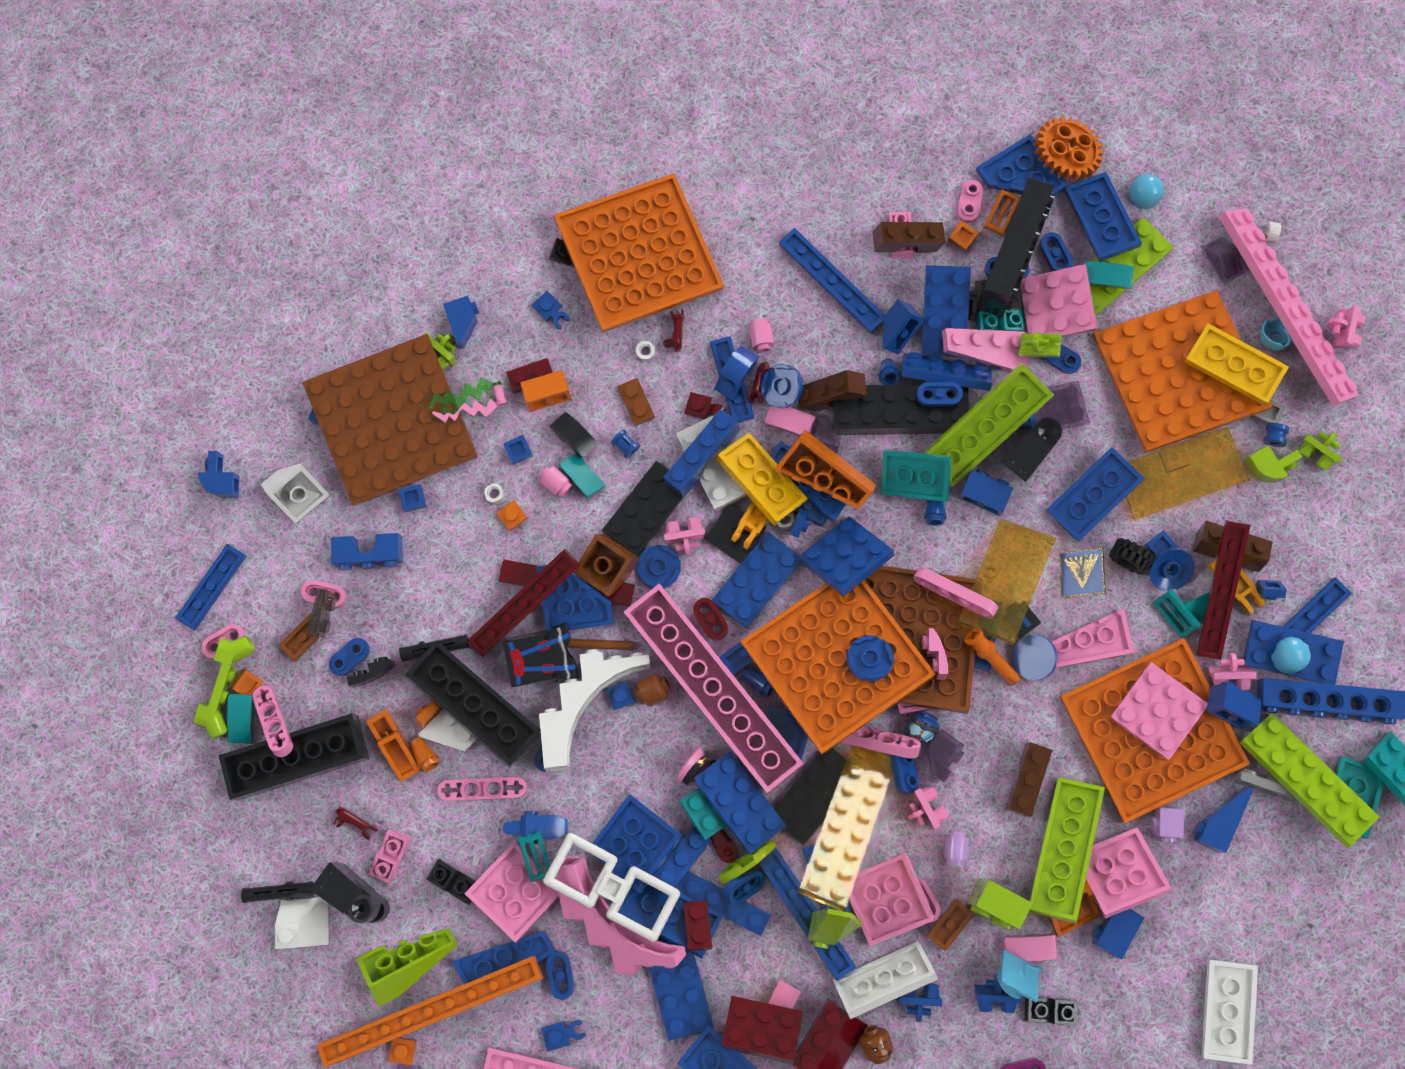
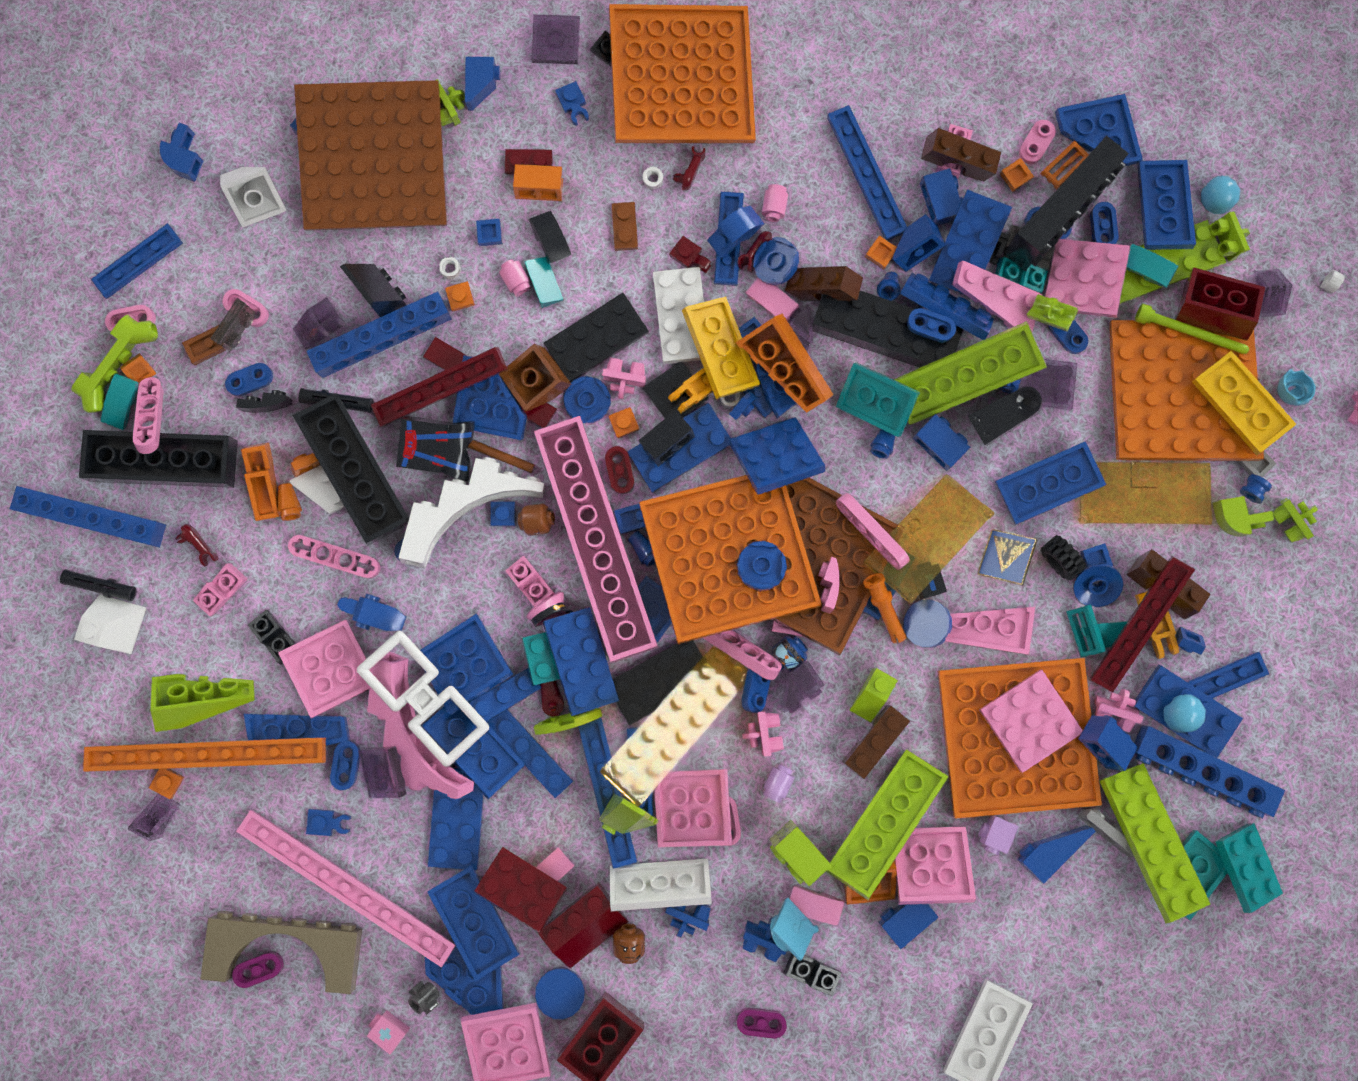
camera: 10 degrees right, 5 degrees up
(247, 832) = (88, 516): none -> blue brick
(350, 894) = (166, 613): black piece -> none
(386, 551) = (282, 272): blue arch -> none
(394, 585) = (318, 323): none -> clear purple slope
(412, 498) = (367, 243): blue plate -> none
(436, 536) = (375, 287): none -> black slope
(453, 575) = (379, 335): none -> blue brick
(459, 402) = (447, 161): piece -> none
(516, 260) = (555, 39): none -> clear purple plate
(530, 838) = (360, 622): teal tile -> none
(597, 968) = (382, 772): none -> clear purple plate
(625, 444) = (598, 264): blue bush -> none
(666, 748) = (529, 581): none -> bright pink slope
(697, 926) = (494, 766): dark red plate -> none
(698, 575) = (624, 422): none -> orange plate
(713, 437) = (650, 310): blue arch -> none
(743, 575) = (667, 438): none -> black hinge
(743, 886) = (555, 744): blue plate -> none
(870, 345) = (881, 252): none -> orange plate
(905, 278) = (941, 196): none -> blue brick
(950, 924) = (744, 854): dark orange plate -> none
(1010, 738) = (873, 694): none -> lime slope
(1068, 148) = (1158, 122): orange gear -> none
(1123, 317) = (1147, 315): none -> lime piece
(1169, 223) = (1230, 235): none -> lime hips
(1183, 286) = (1220, 303): none -> dark red brick
(1288, 306) = (1320, 362): bright pink plate -> none

